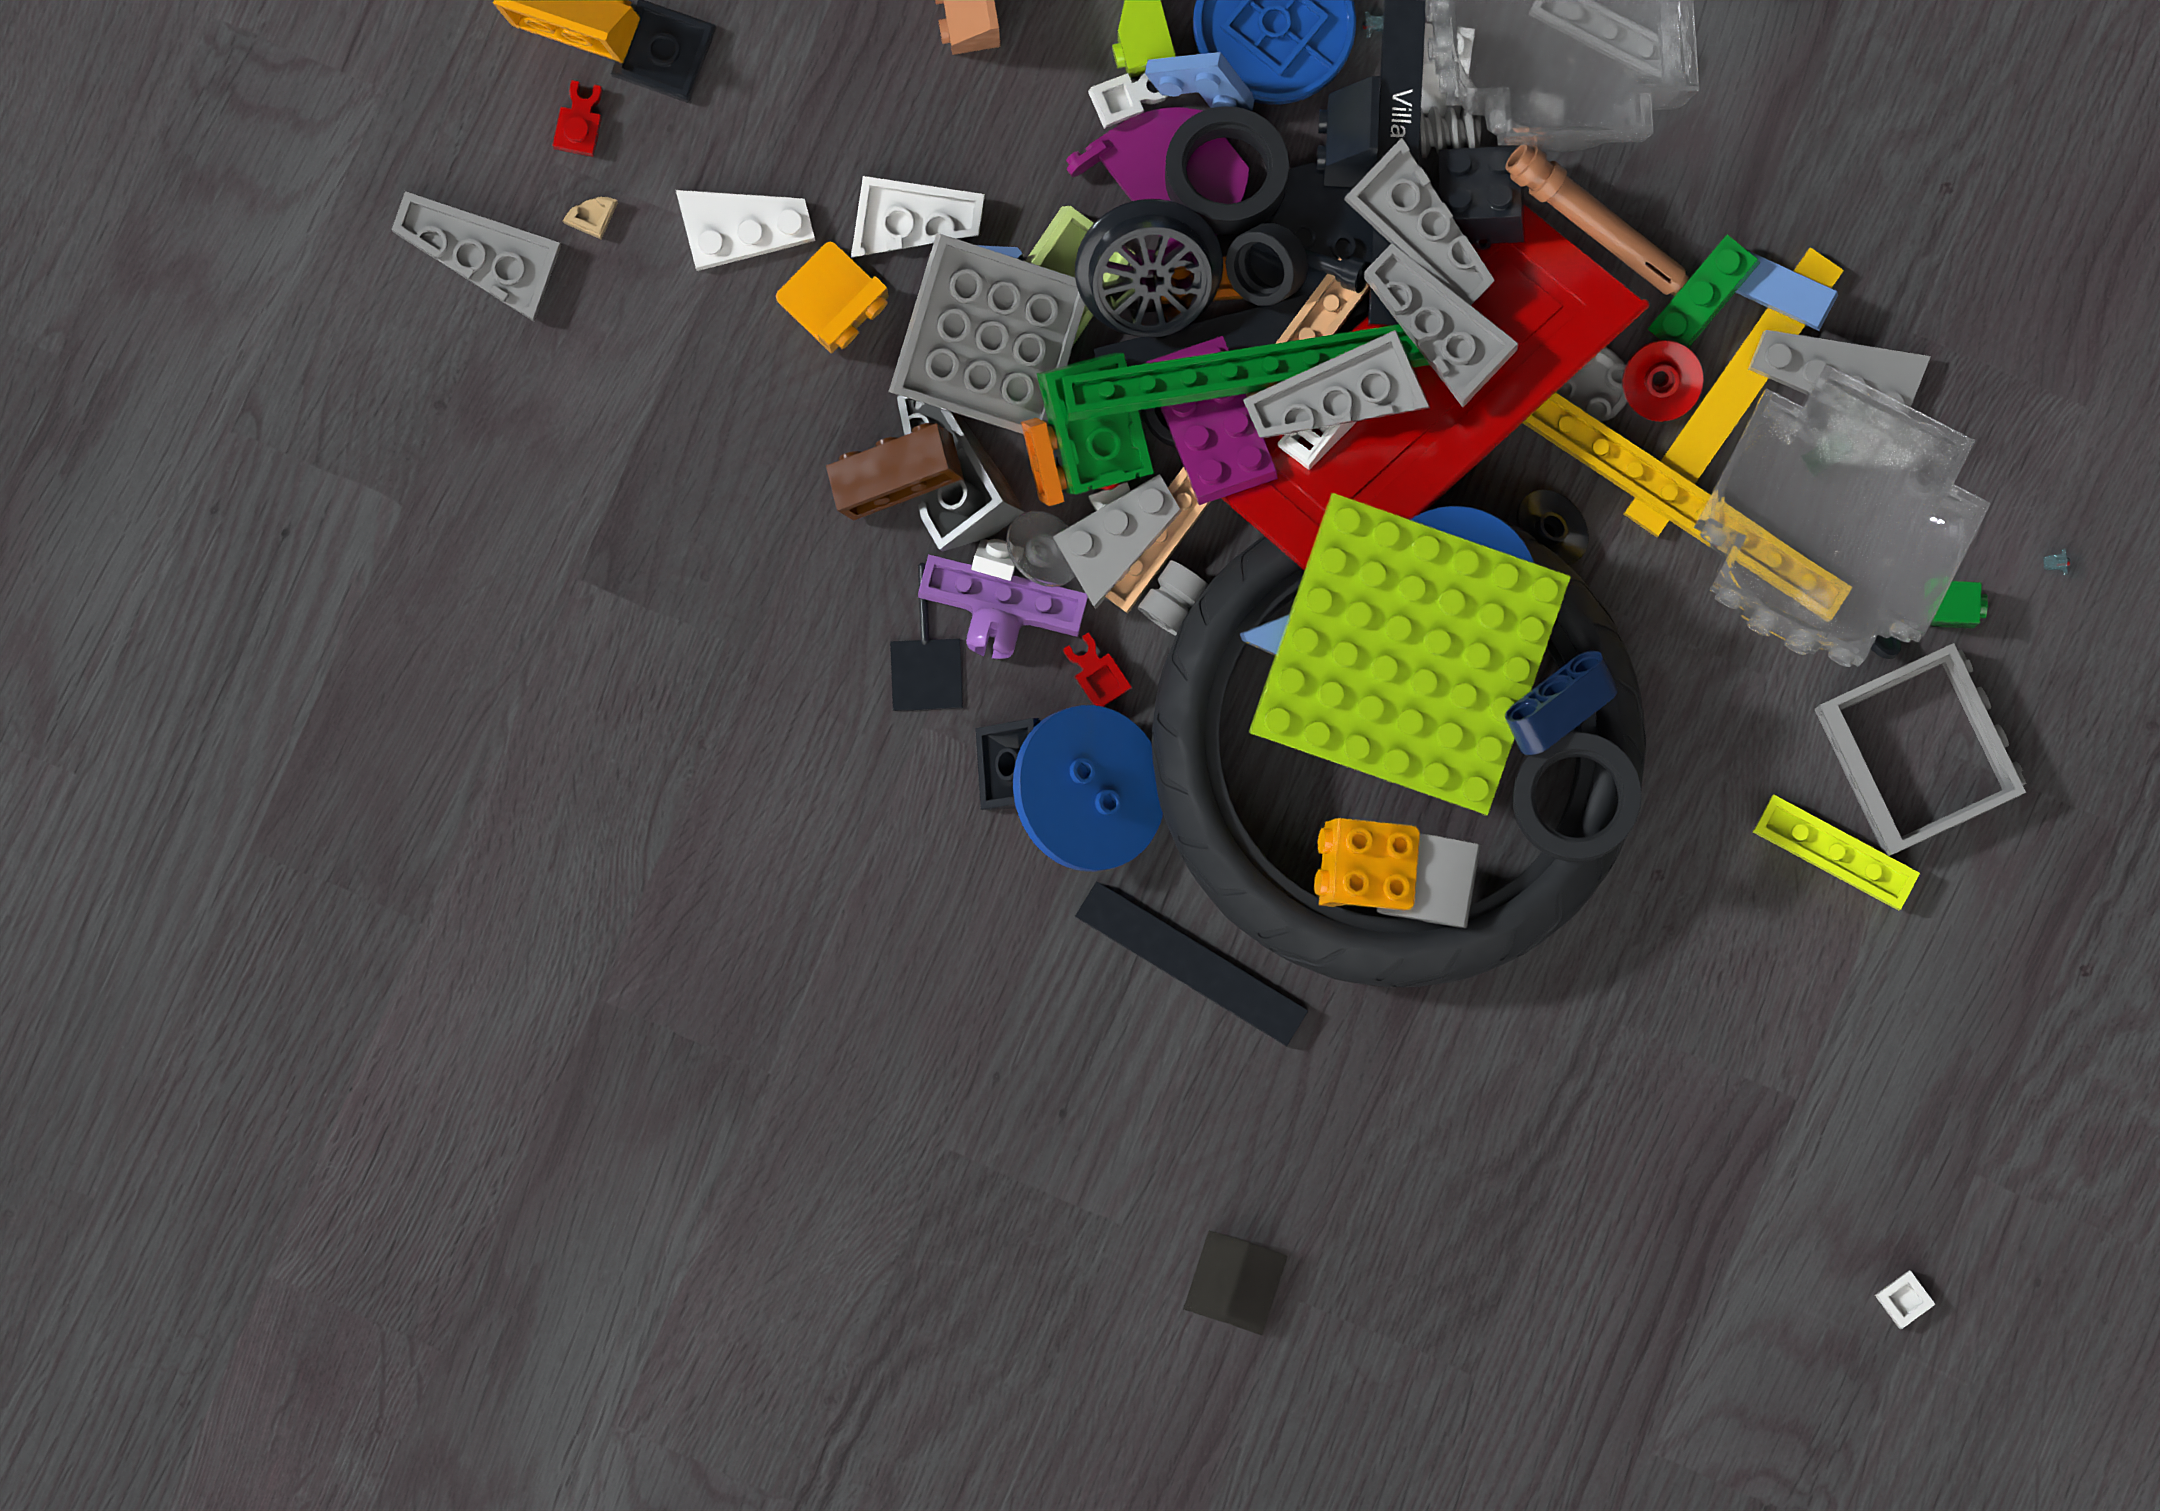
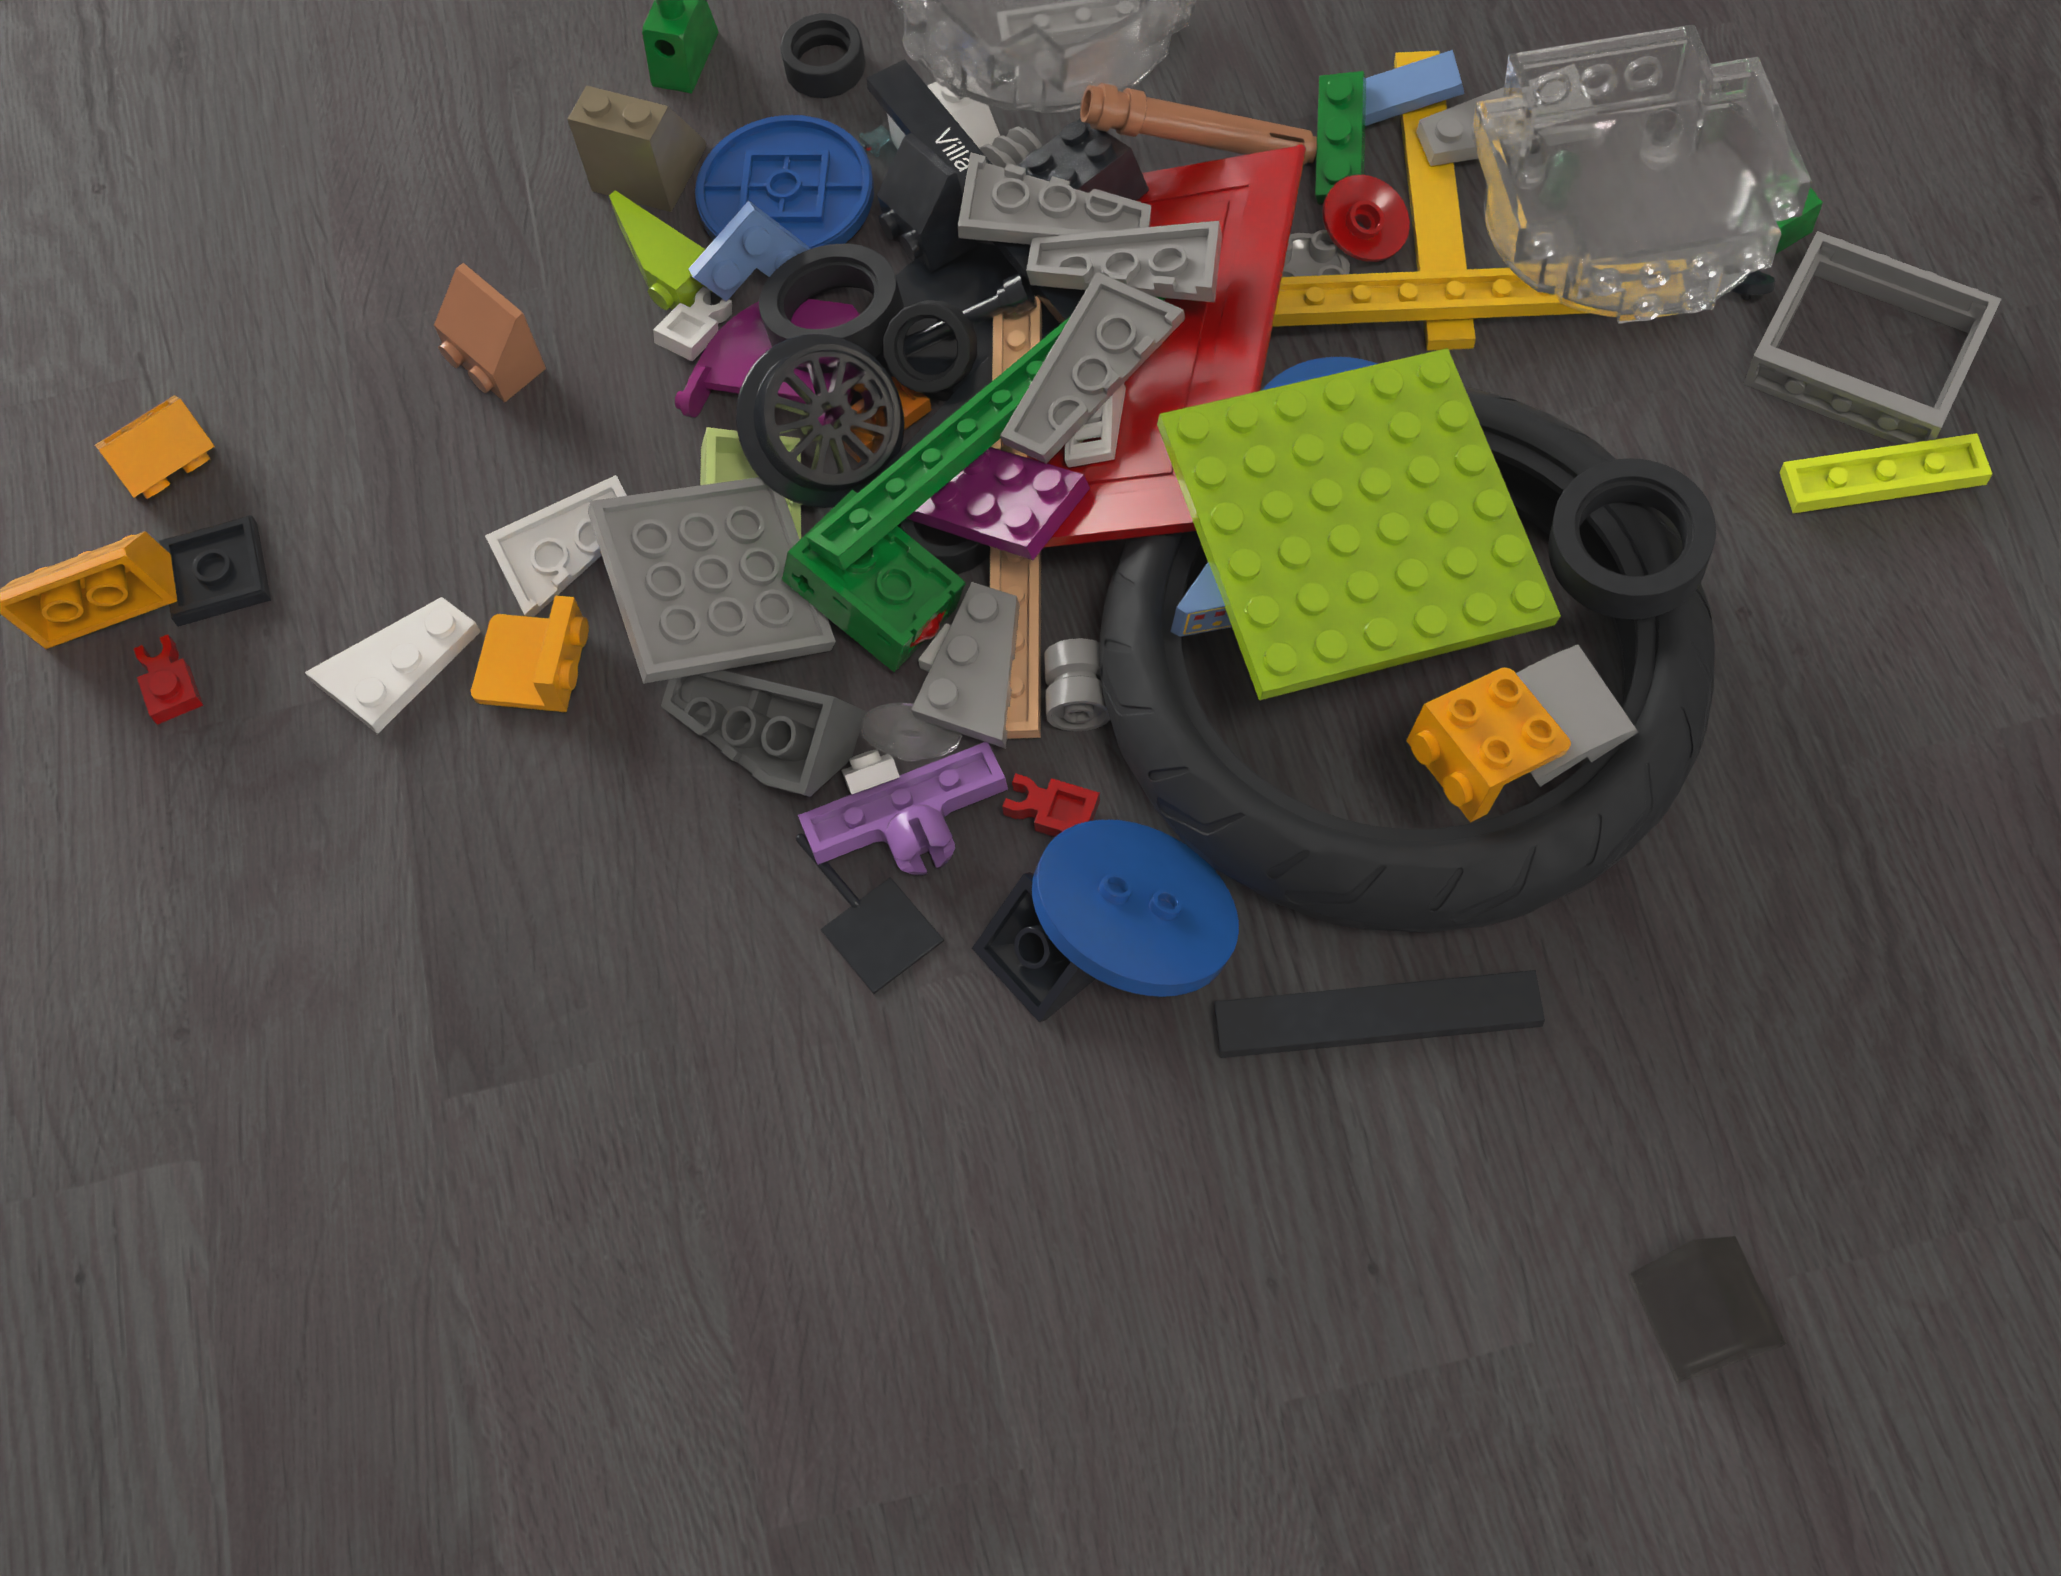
camera: 30 degrees left, 20 degrees down
(486, 252) = (138, 854): light grey wing -> none
(592, 216) = (234, 754): tan tile -> none
(894, 471) = (704, 756): reddish brown brick -> none
(1040, 446) = (848, 652): orange plate -> none
(1561, 703) = (1540, 461): dark blue beam -> none
(2057, 562) = (1830, 135): clear light blue piece -> none

